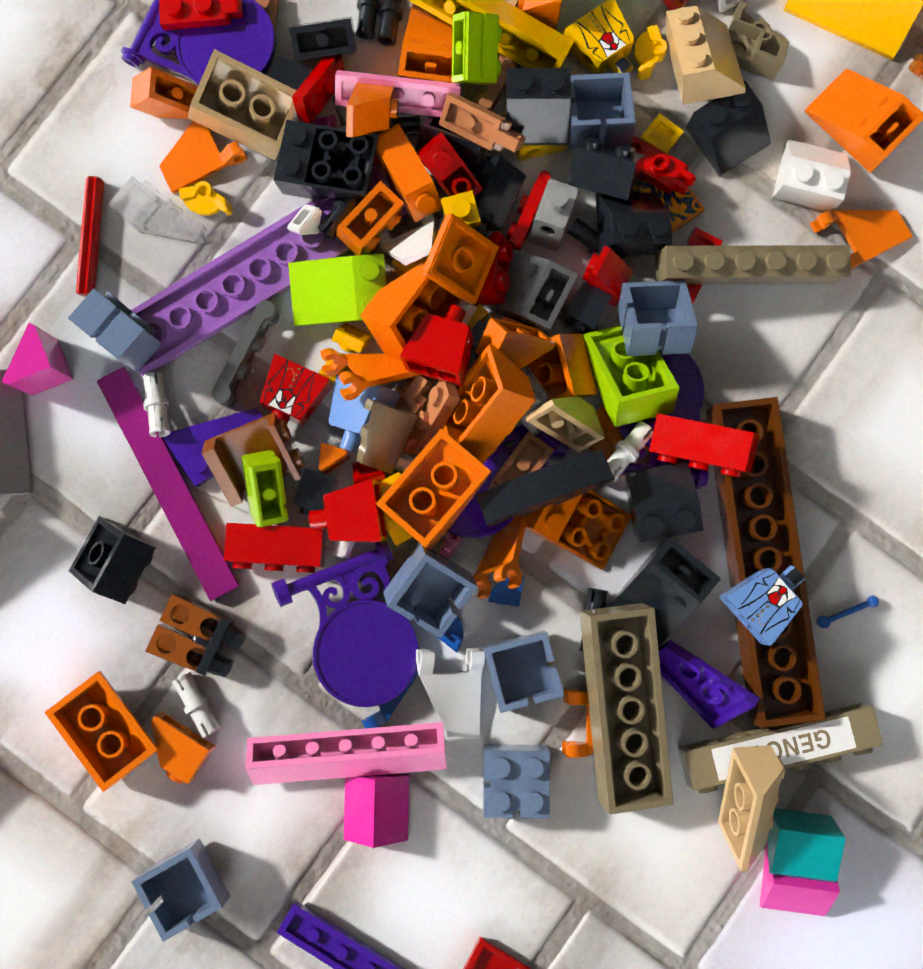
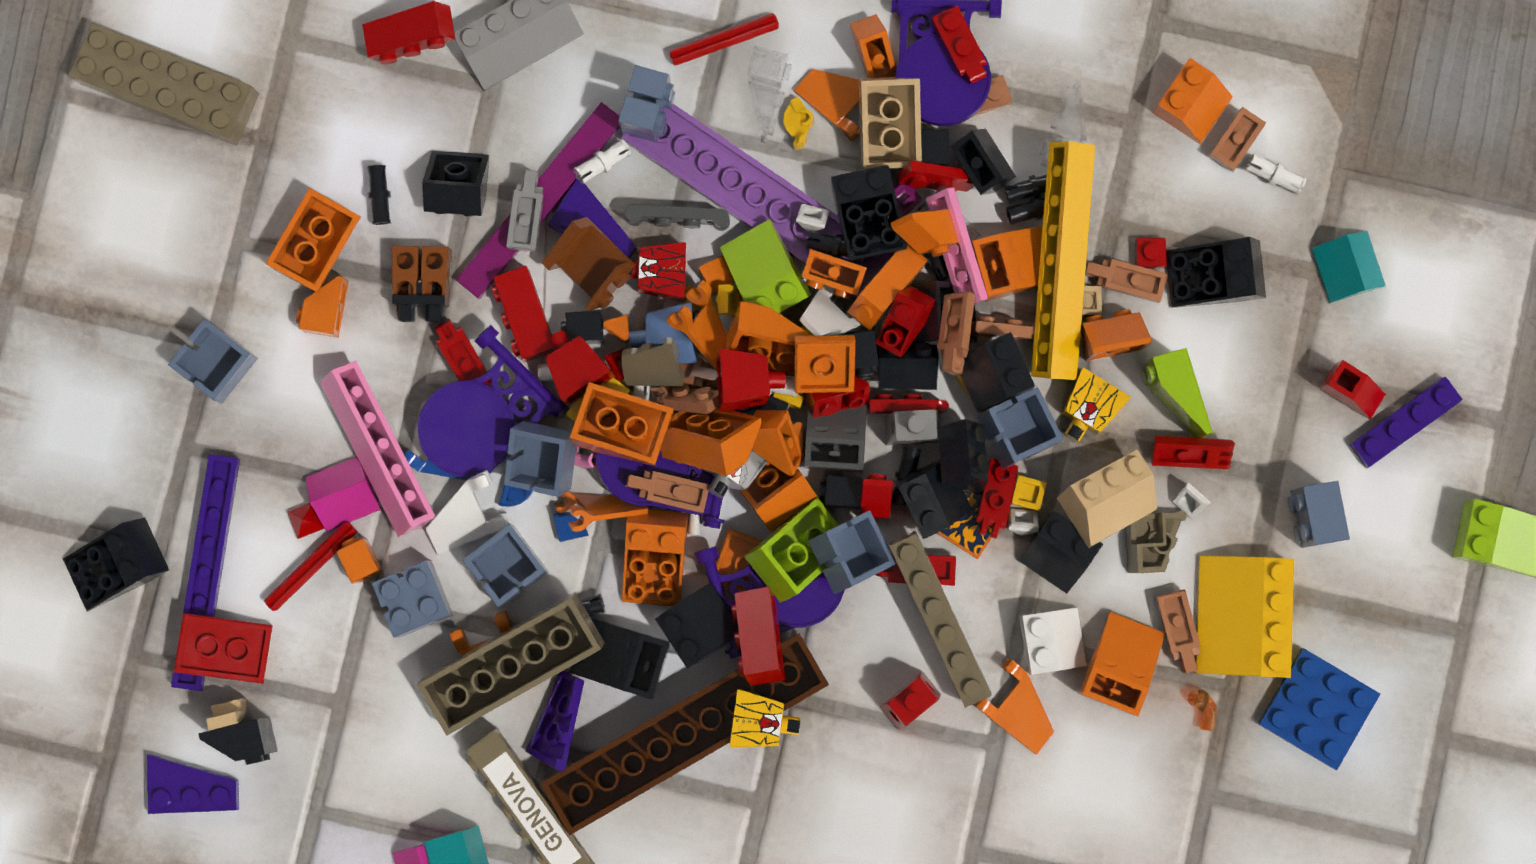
camera: 75 degrees right, 0 degrees up
(37, 363) = (594, 49): dark pink slope -> none
(87, 643) = (379, 195): none -> black pin
(175, 501) = (526, 214): none -> light grey hinge
(196, 705) = (365, 307): white pin -> none
(264, 488) = (568, 284): lime brick -> none
(285, 628) = (460, 352): none -> red hinge
(318, 338) = (716, 273): none -> orange slope
(387, 859) = (305, 521): none -> red slope
(436, 872) = (310, 566): none -> red axle
(452, 819) = (359, 560): none -> orange brick
(462, 206) = (869, 346): yellow plate -> none
(475, 48) = (1018, 298): lime brick -> none
(545, 487) = (663, 516): black slope -> none
(568, 421) = (731, 516): tan slope -> none
(628, 449) = (728, 575): white pin -> none
(649, 51) = (1102, 450): yellow piece -> none
(688, 149) = (1023, 521): none -> white slope
(750, 801) = (475, 800): tan slope -> none
(765, 602) = (645, 741): medium blue torso -> none
(791, 478) = (760, 721): none -> yellow torso
(820, 329) = (911, 701): none -> red torso
(824, 621) = (657, 811): blue hinge -> none
(848, 52) = (1179, 628): none -> nougat hinge

